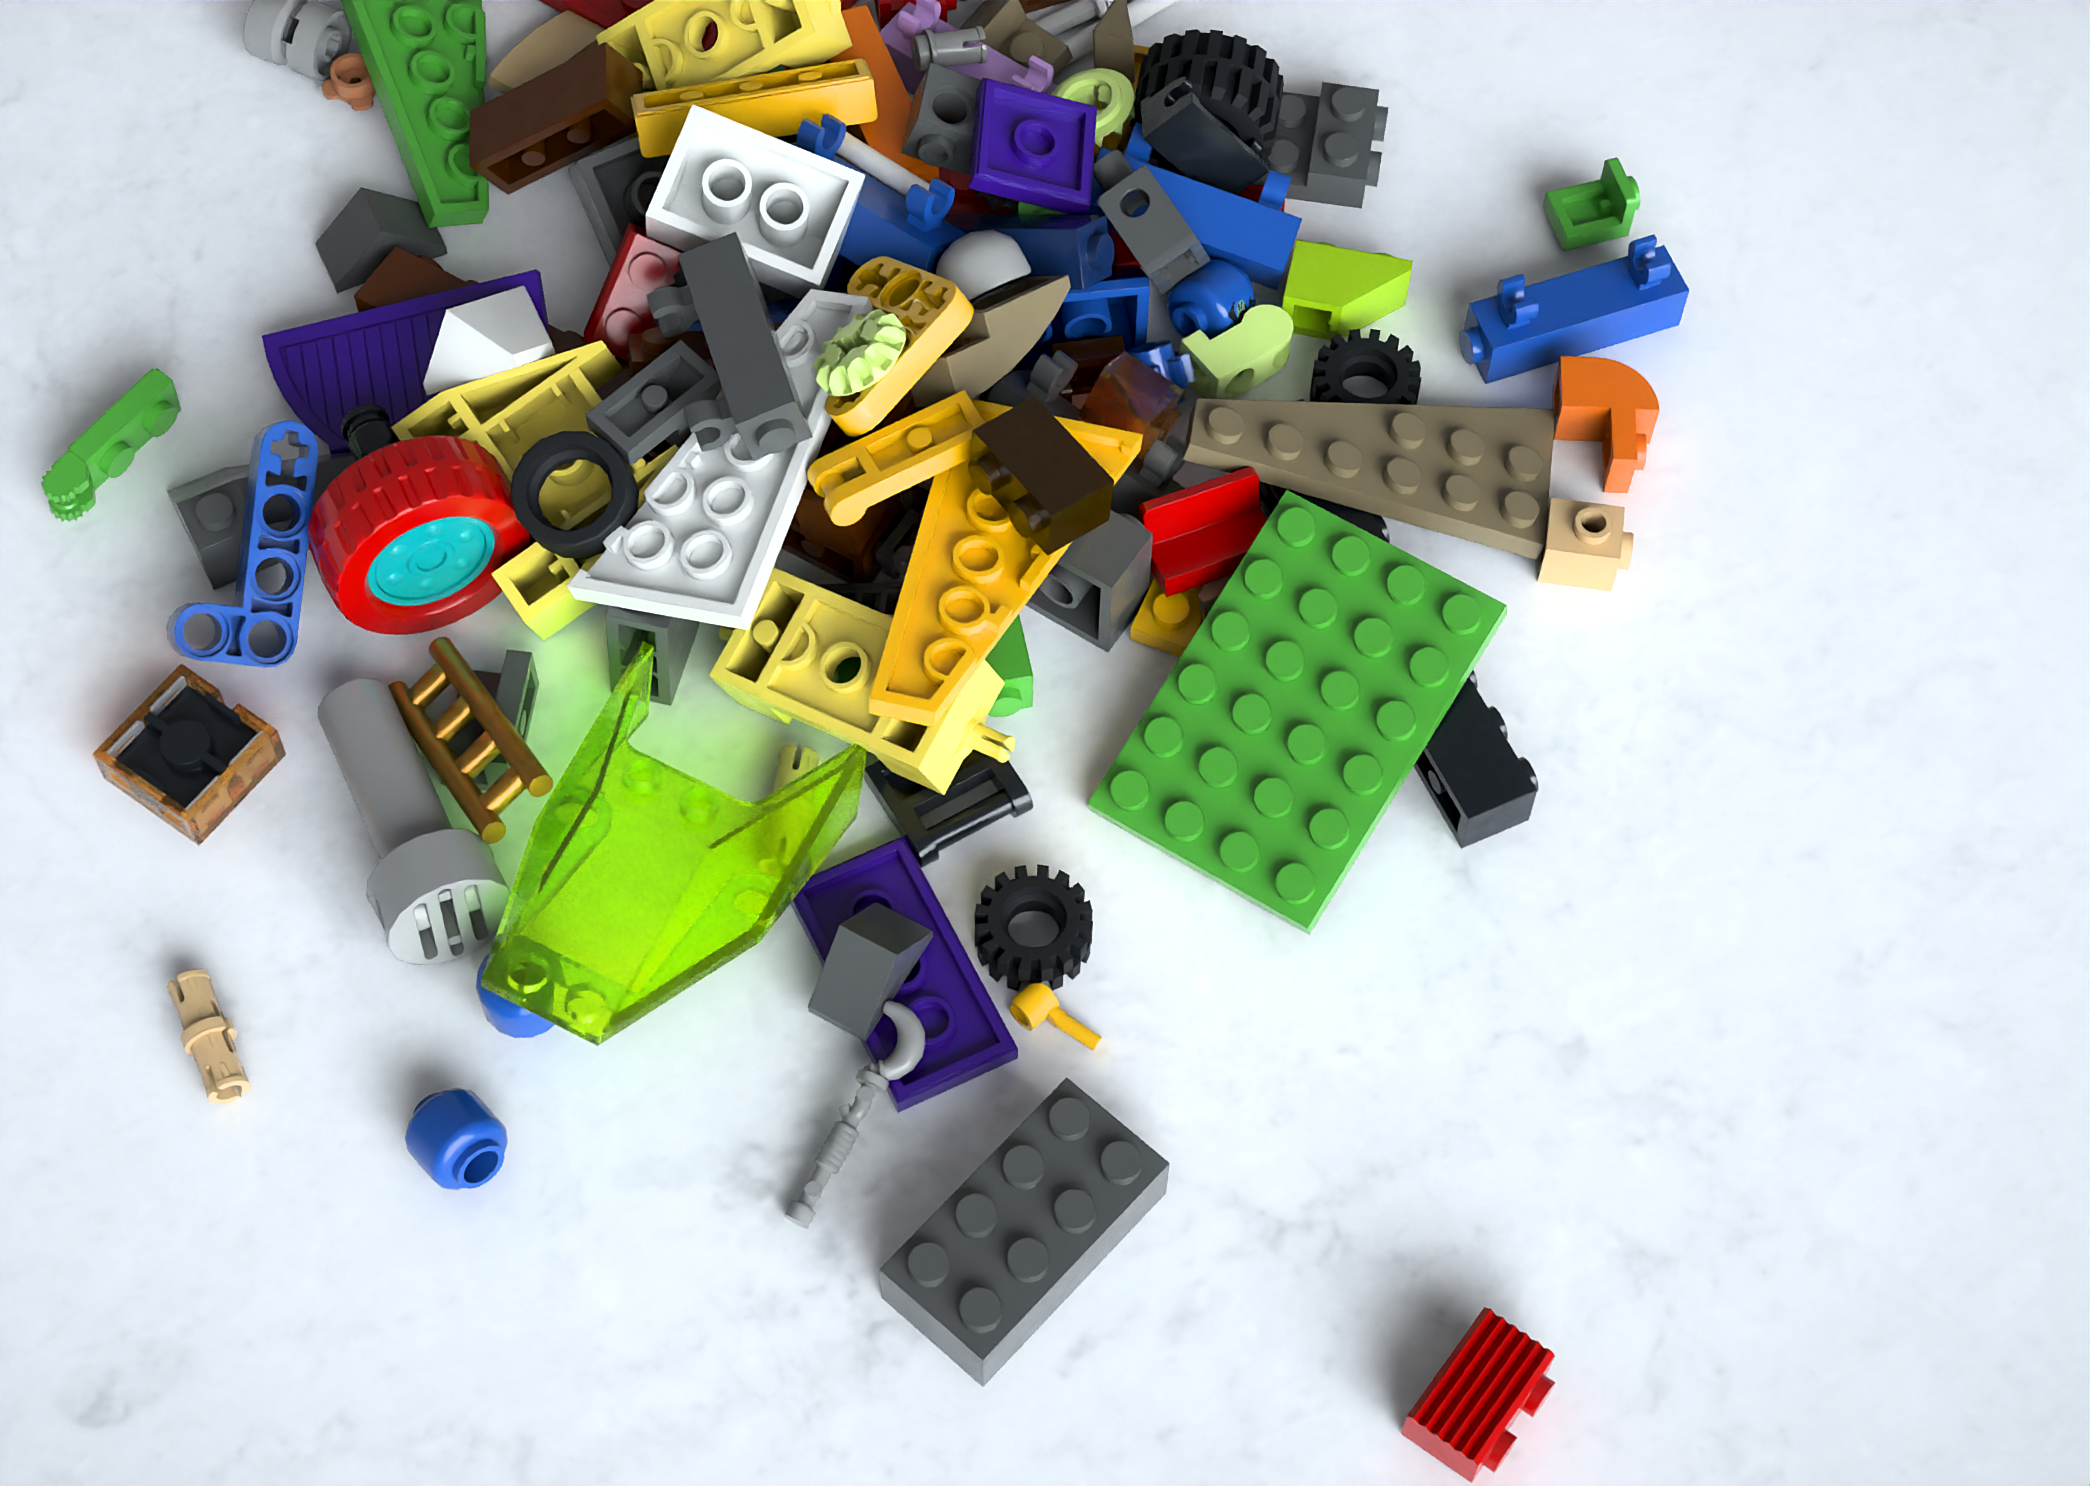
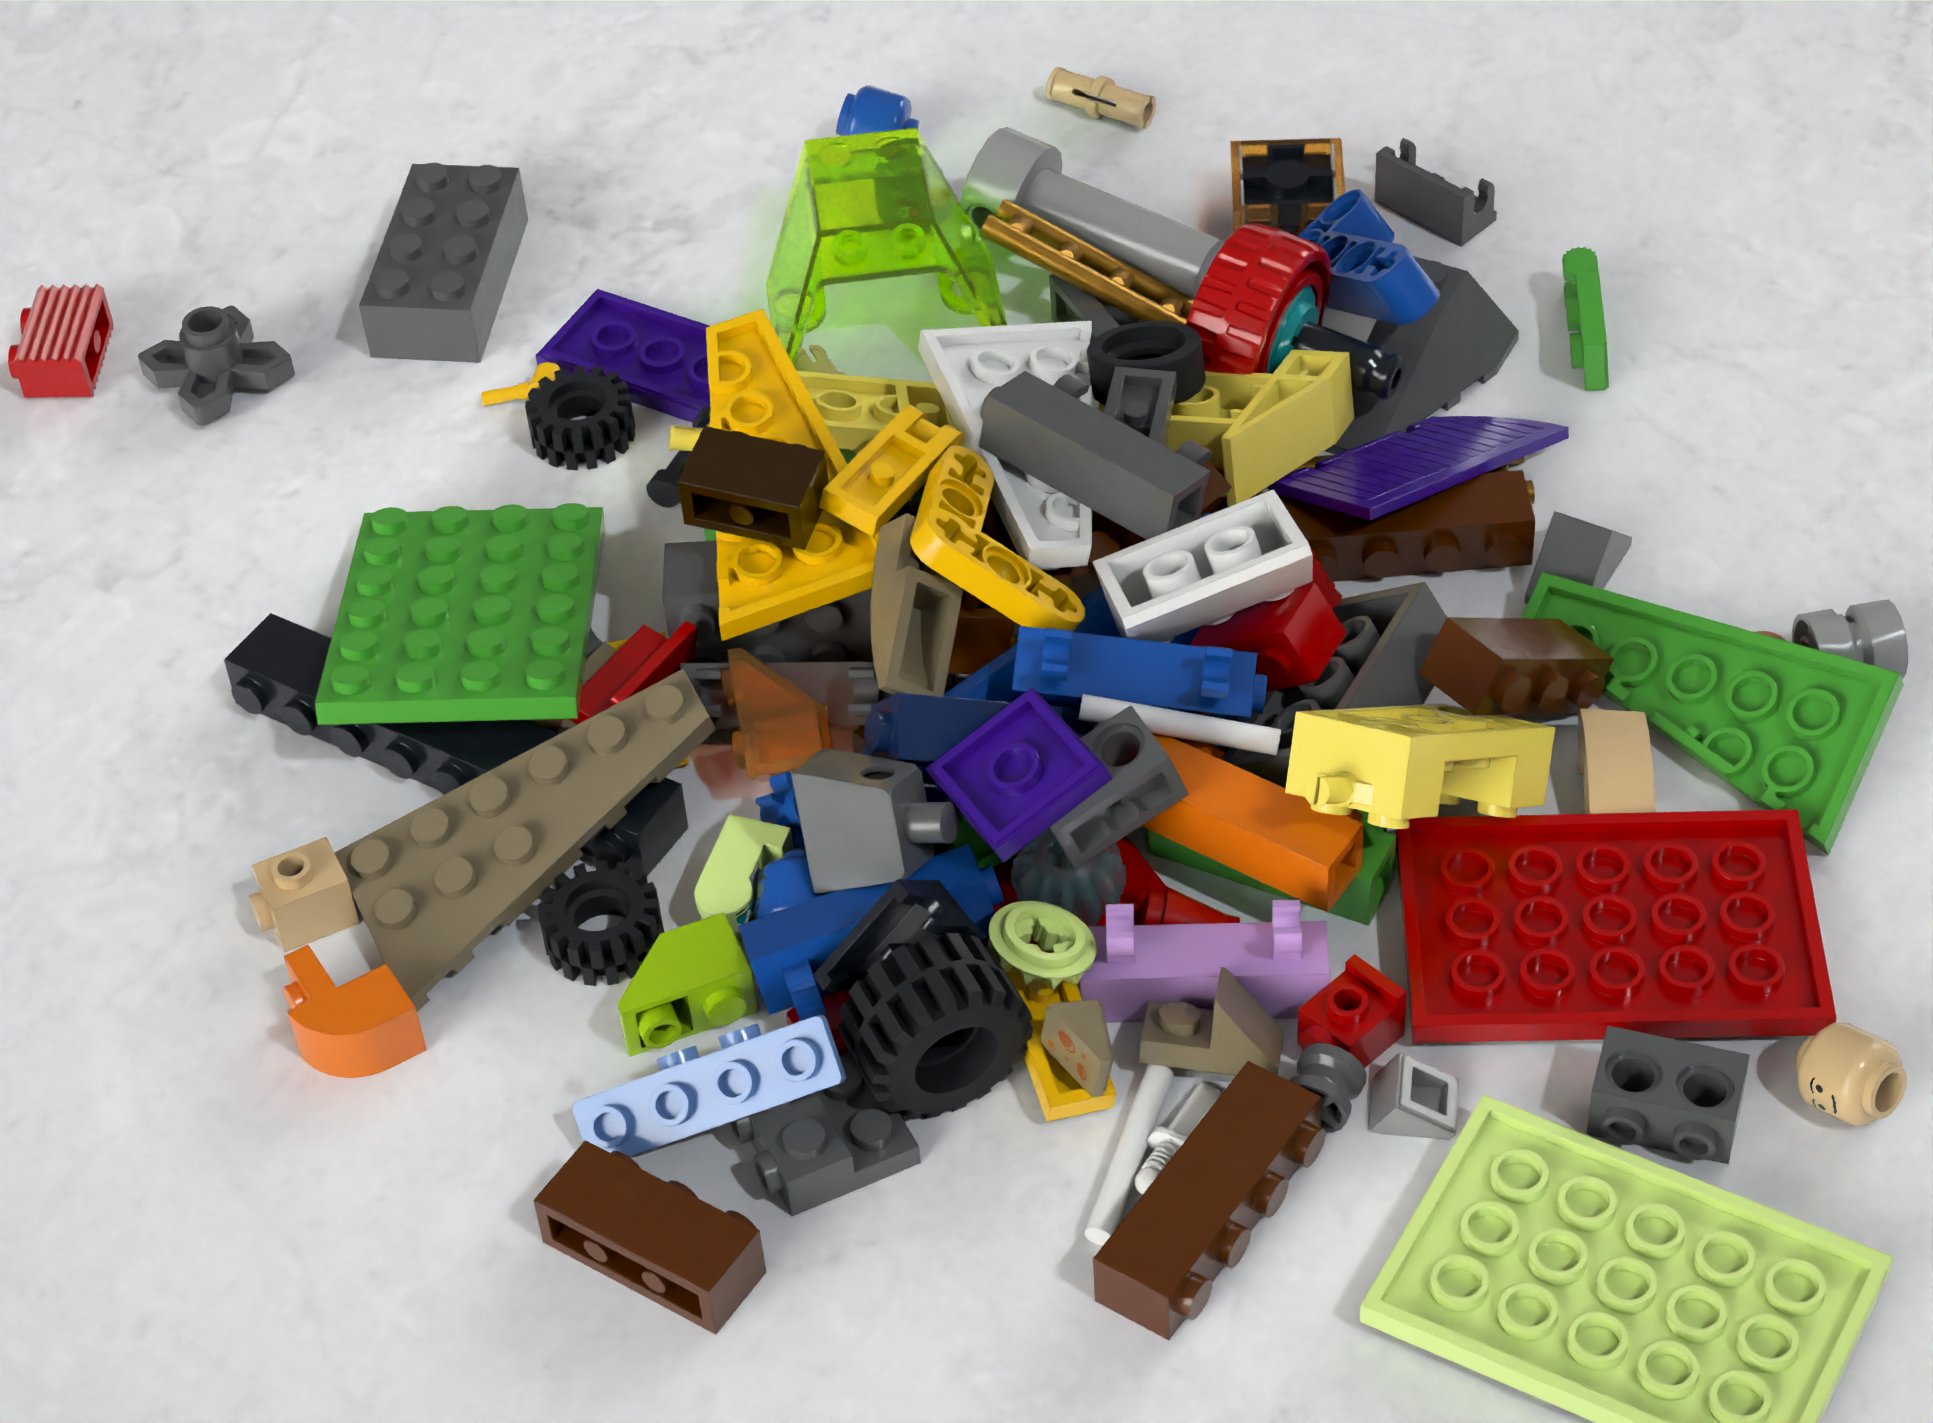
camera: 150 degrees right, 15 degrees down
(67, 676) = (1430, 198): none -> dark grey hinge
(486, 340) = (1326, 425): white slope -> none
(765, 102) = (1336, 678): yellow slope -> none
(860, 353) = (981, 478): yellowish green gear -> none
(866, 968) = (676, 328): dark grey slope -> none
(872, 1079) = (621, 278): light grey piece -> none
(947, 48) = (1242, 910): light grey pin -> none
(982, 262) = (967, 653): light grey hair -> none
(1335, 1254) = (212, 360): none -> dark grey plant
(1378, 180) = (712, 1089): none -> bracket
(1488, 127) = (651, 1235): none -> reddish brown brick
(1573, 312) = (434, 1093): blue brick -> none
(1594, 209) = (482, 1212): bright green bracket -> none

